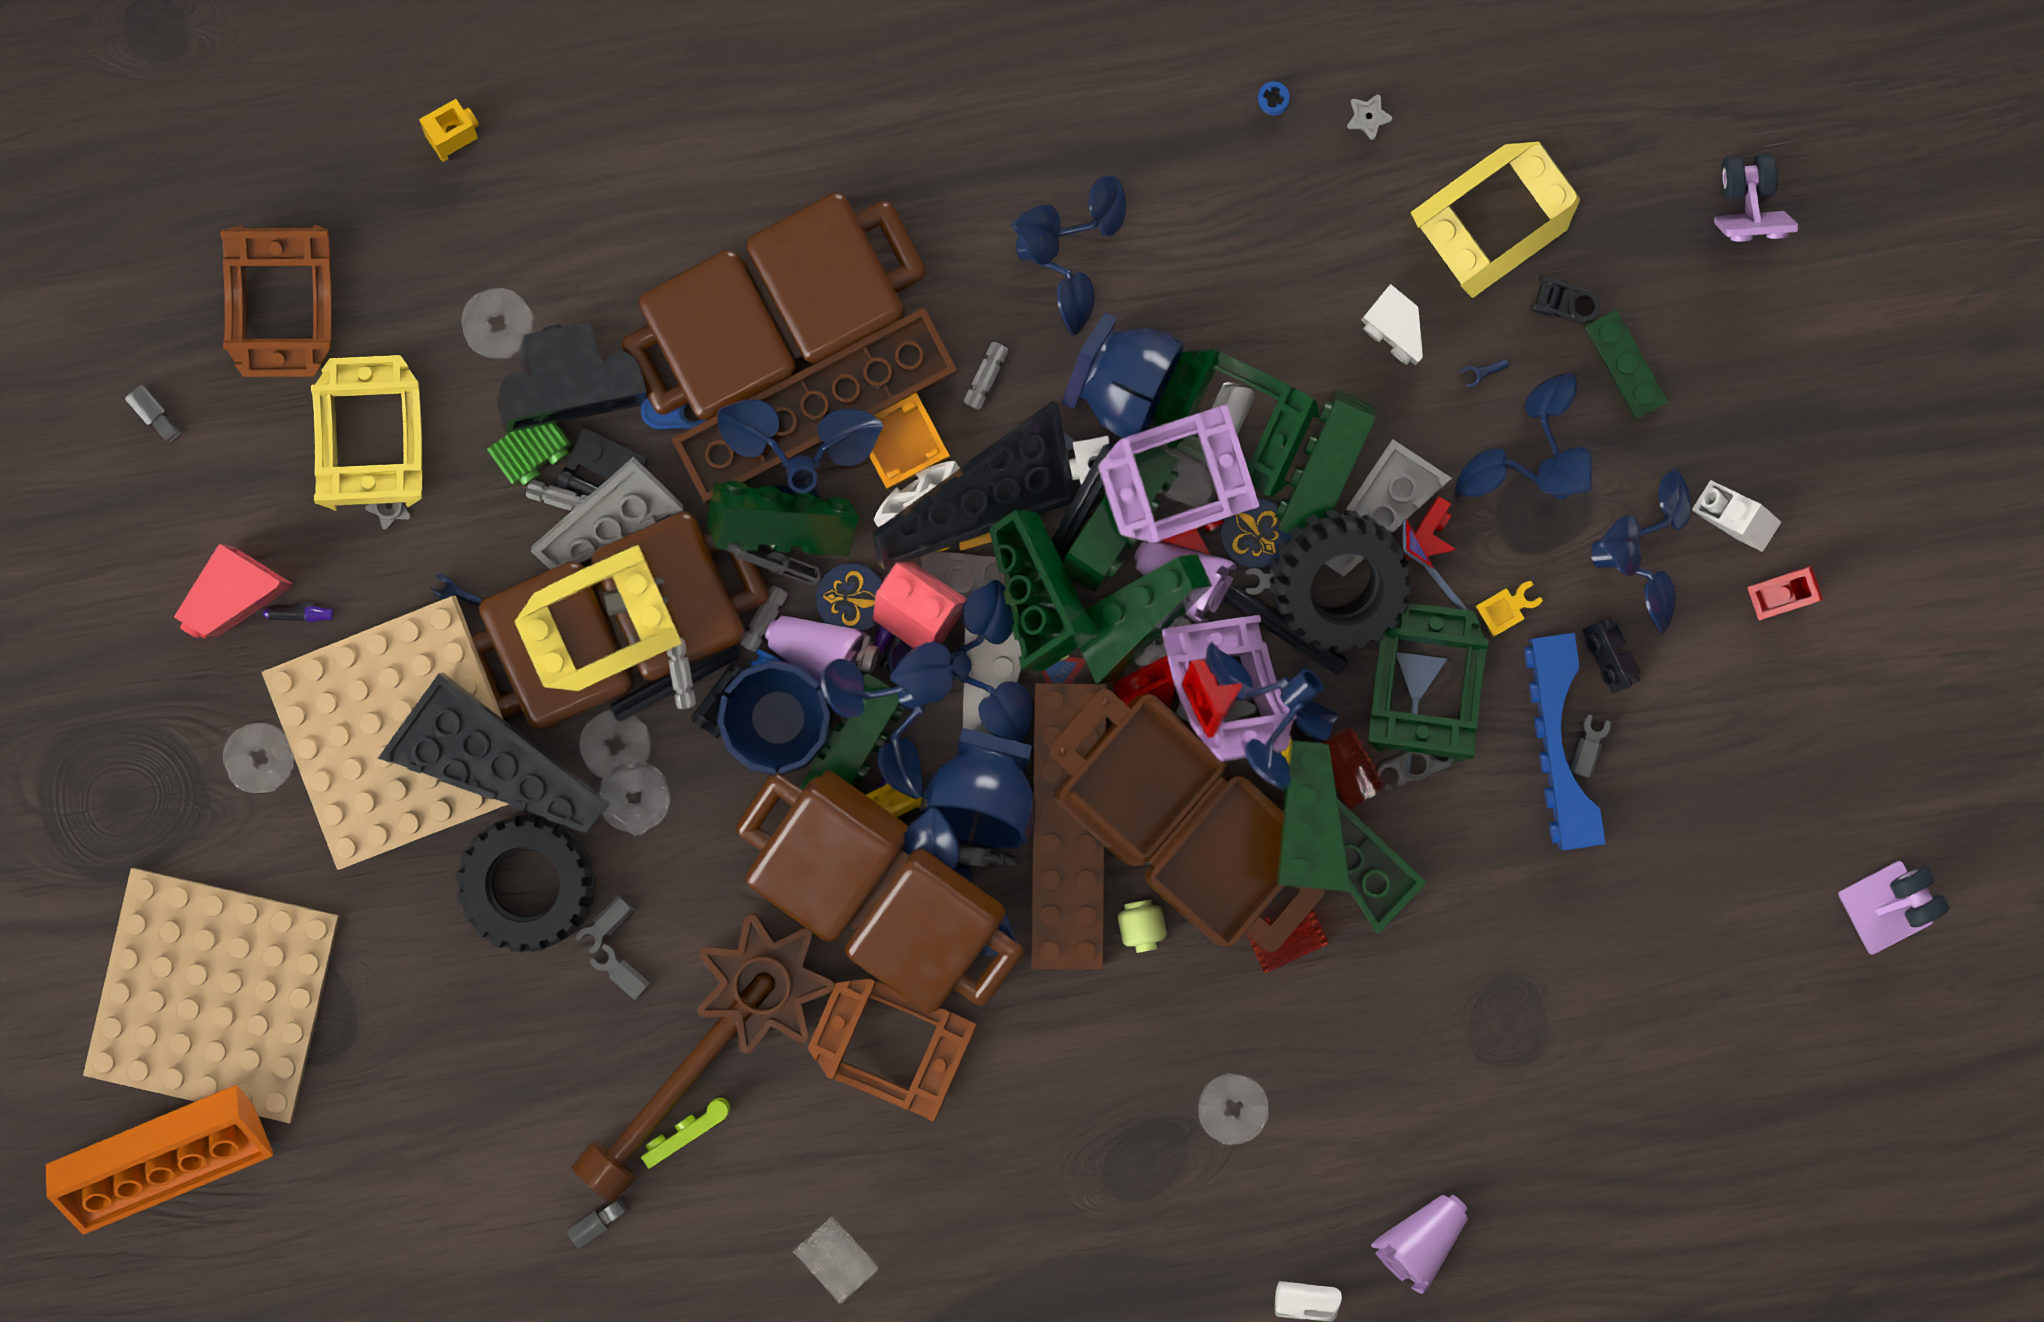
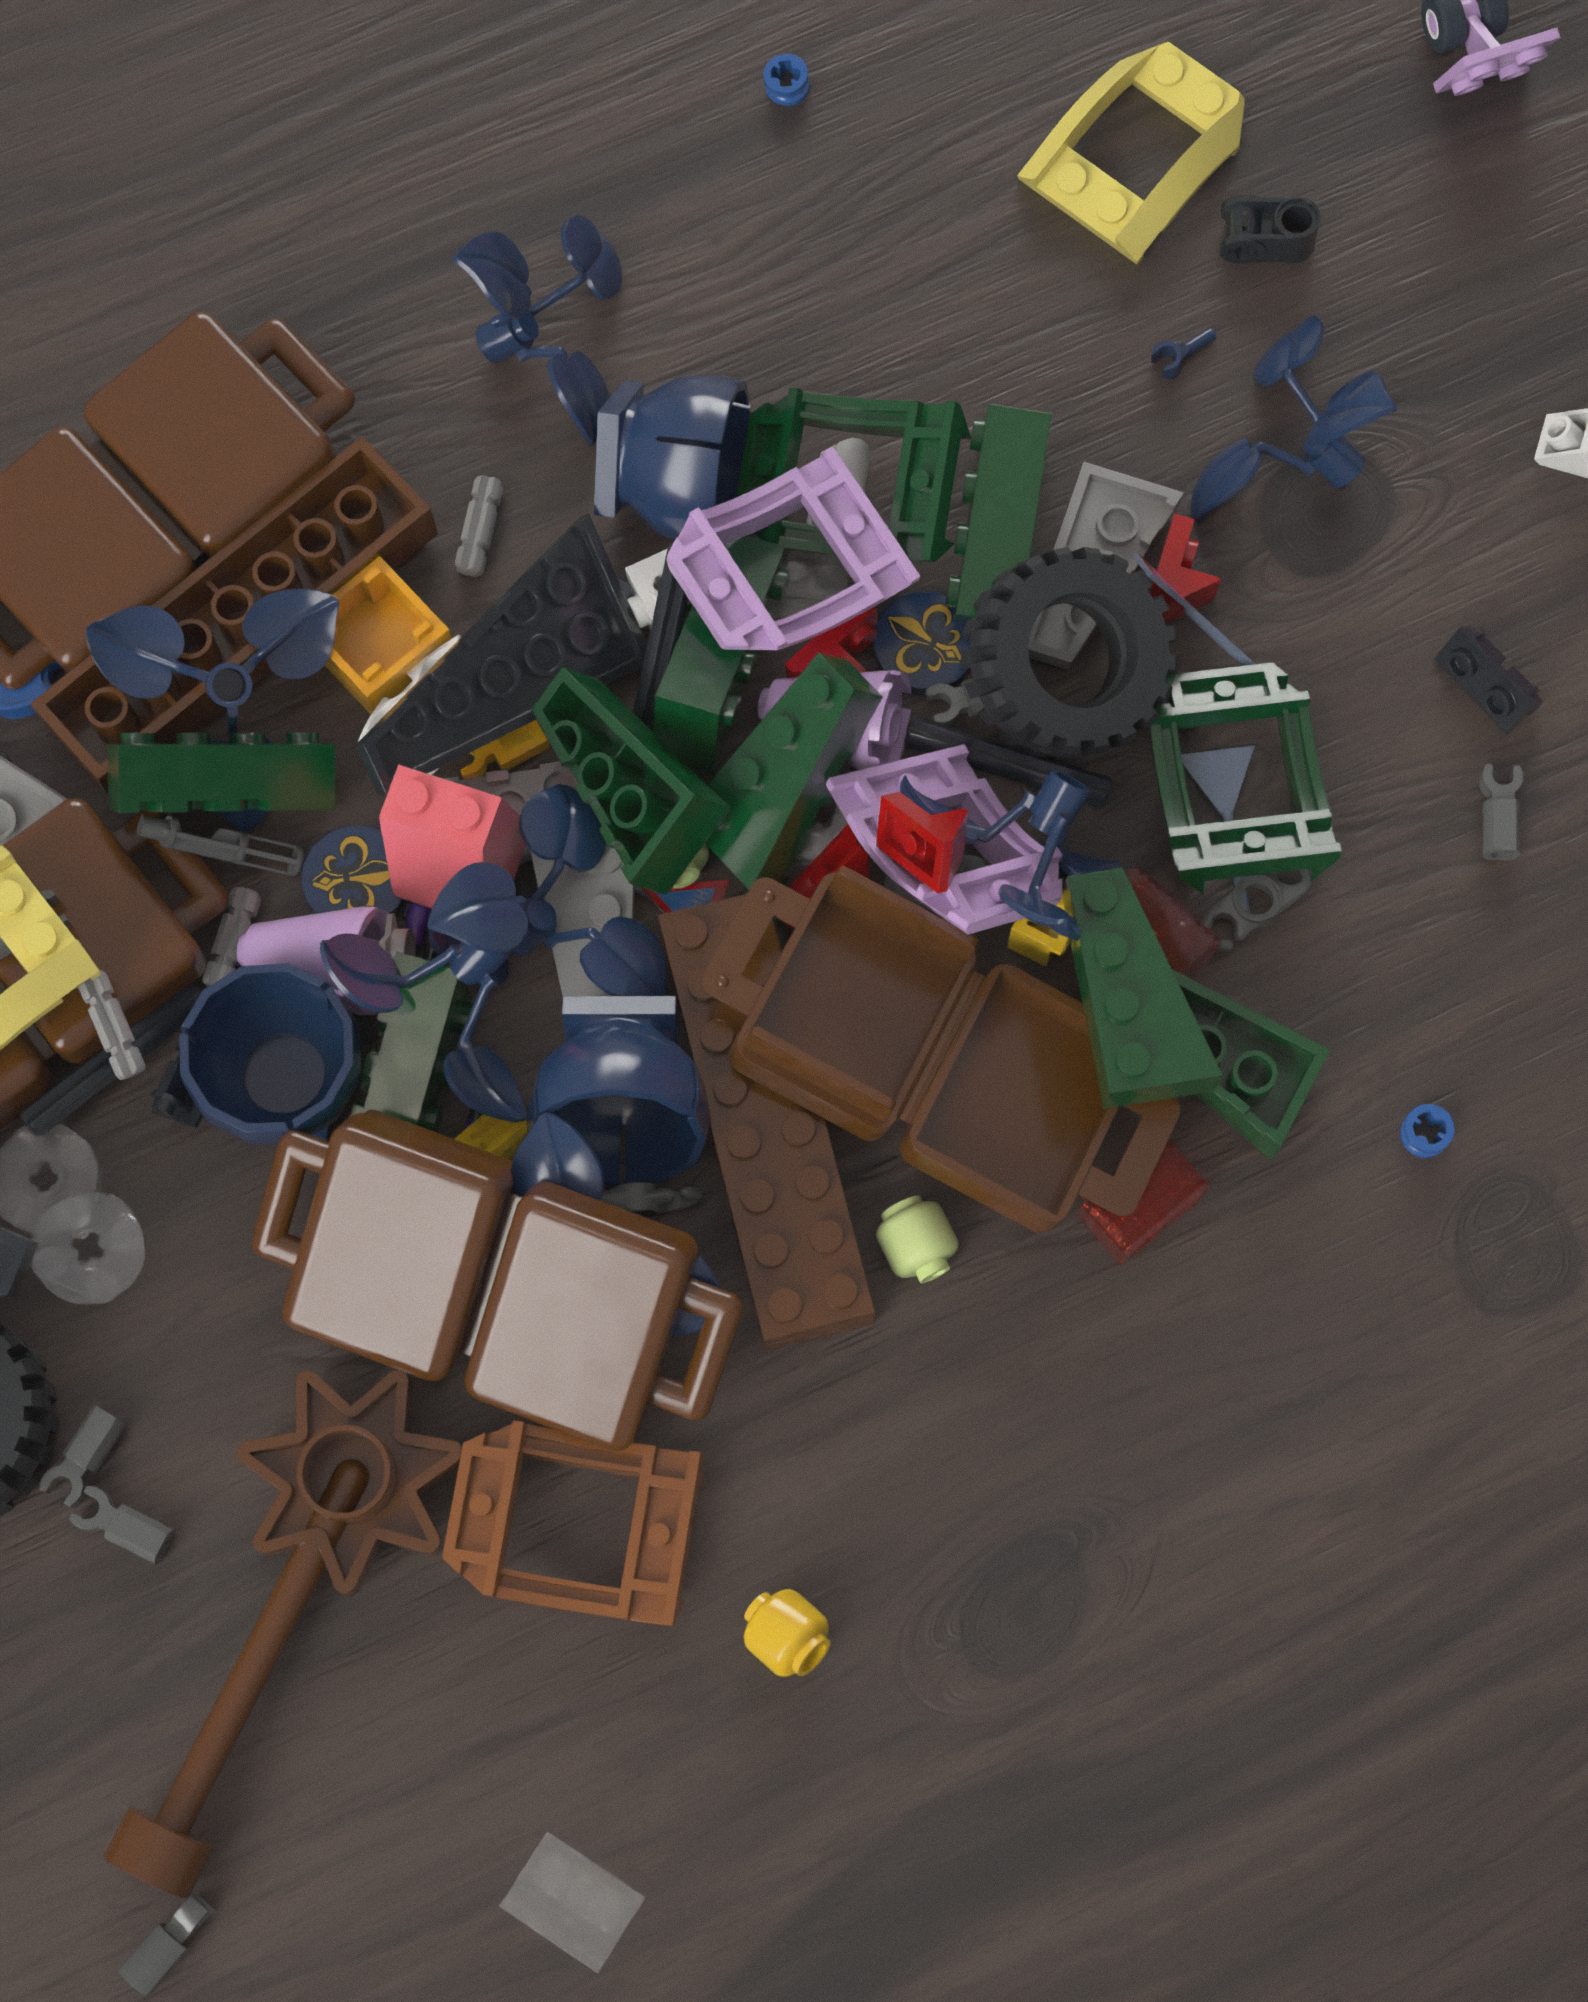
camera: 15 degrees left, 15 degrees down
(687, 1130) = (283, 1751): lime plate -> none
(1000, 1141) = (786, 1633): none -> yellow head
(1228, 1128) = (1140, 1519): clear plate -> none
(1307, 1301) = (1345, 1762): white arm -> none
(1369, 126) = (922, 82): light grey plate -> none
(1396, 322) = (1042, 313): white slope -> none
(1422, 1241) = (1495, 1615): lavender cone -> none
(1484, 931) = (1434, 1116): none -> blue bush
(1503, 610) = (1317, 654): yellow plate -> none
(1575, 815) = (1514, 909): blue arch -> none
(1622, 548) = (1455, 528): dark blue plant -> none
(1625, 364) = (1377, 294): dark green plate -> none

